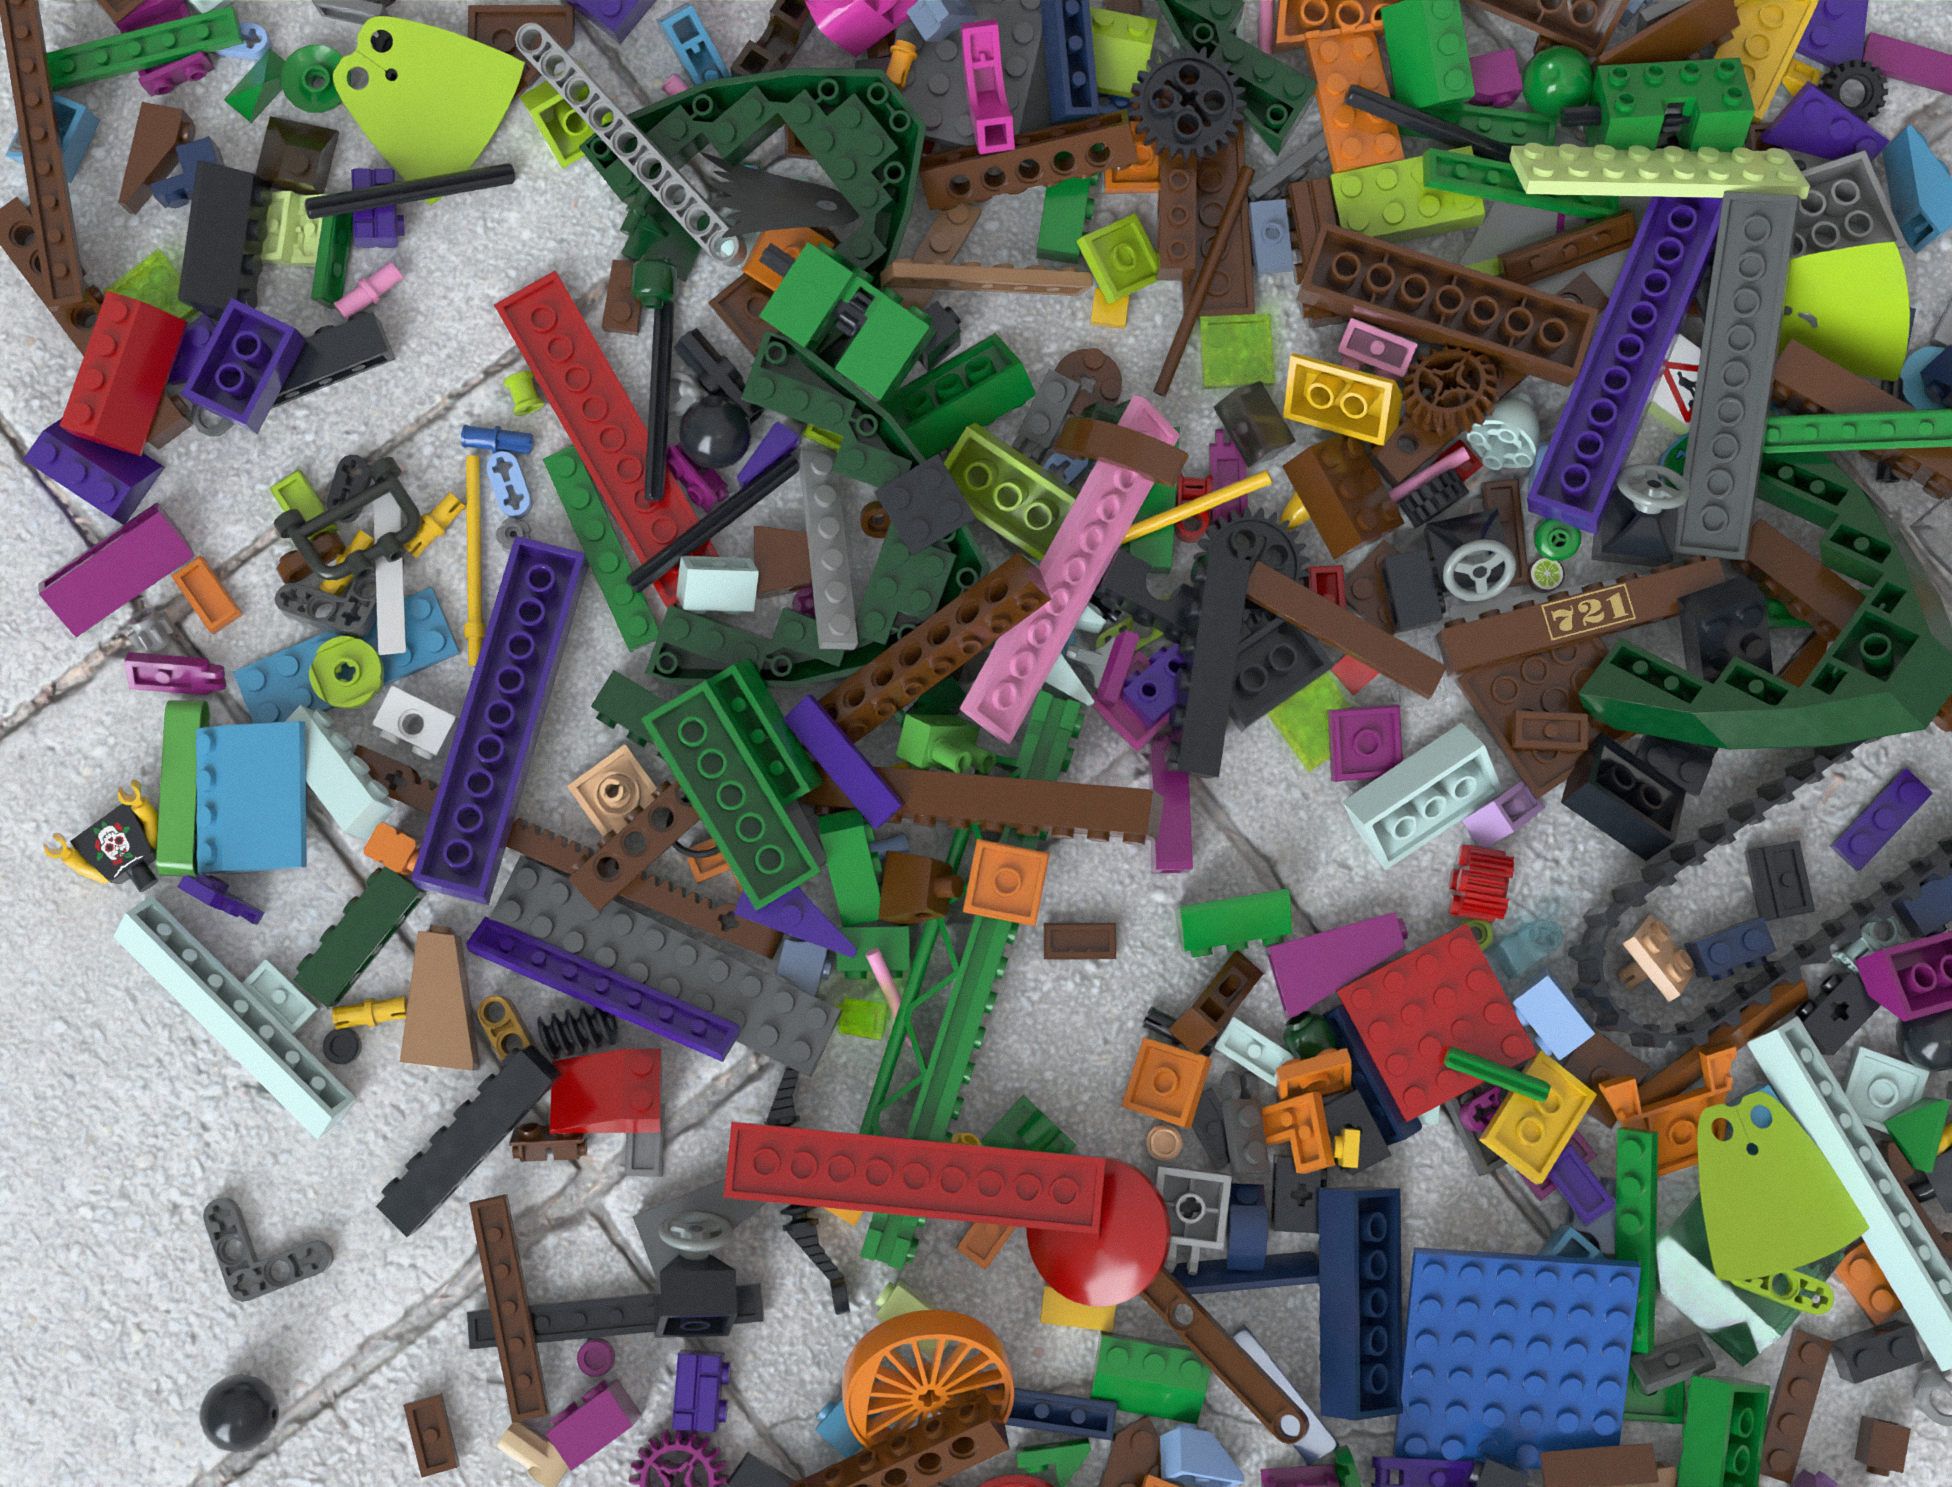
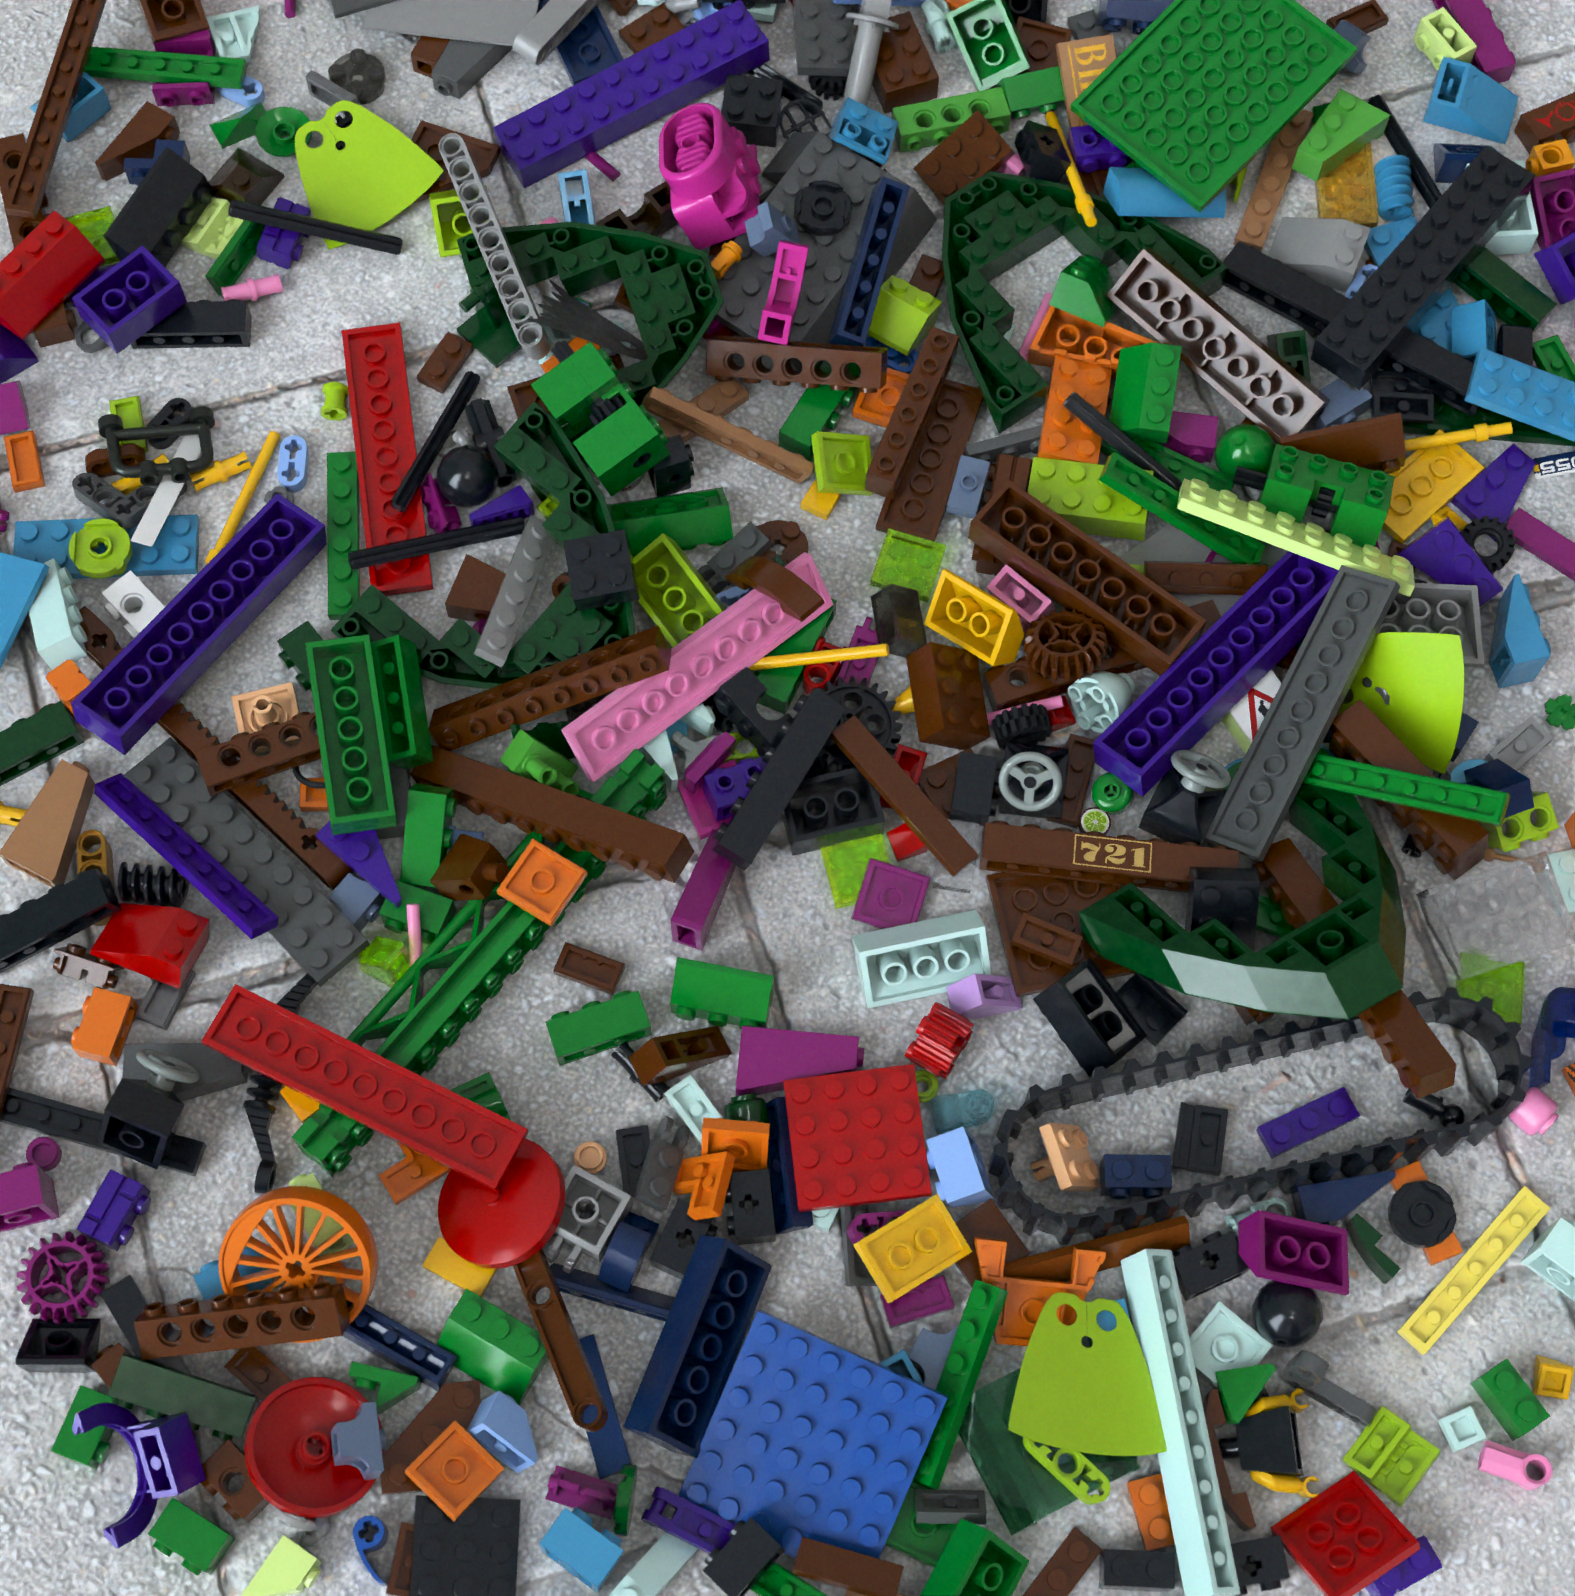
camera: 20 degrees right, 15 degrees down
(496, 439) = (298, 427): blue axle -> none
(599, 1203) = (104, 1026): none -> orange brick
(653, 281) = (470, 353): dark green head -> none
(717, 584) = (417, 586): light aqua brick -> none
(843, 761) = (454, 746): dark purple tile -> none
(1116, 1001) = (598, 1027): none -> green brick
(1166, 1082) = (611, 1105): orange plate -> none
(1204, 280) = (901, 502): reddish brown piece -> none
(1211, 84) = (910, 366): black gear -> none
(1347, 1147) = (737, 1208): yellow plate -> none
(1497, 1074) = (888, 1192): green axle -> none
(1580, 1186) = (925, 1320): dark purple tile -> none

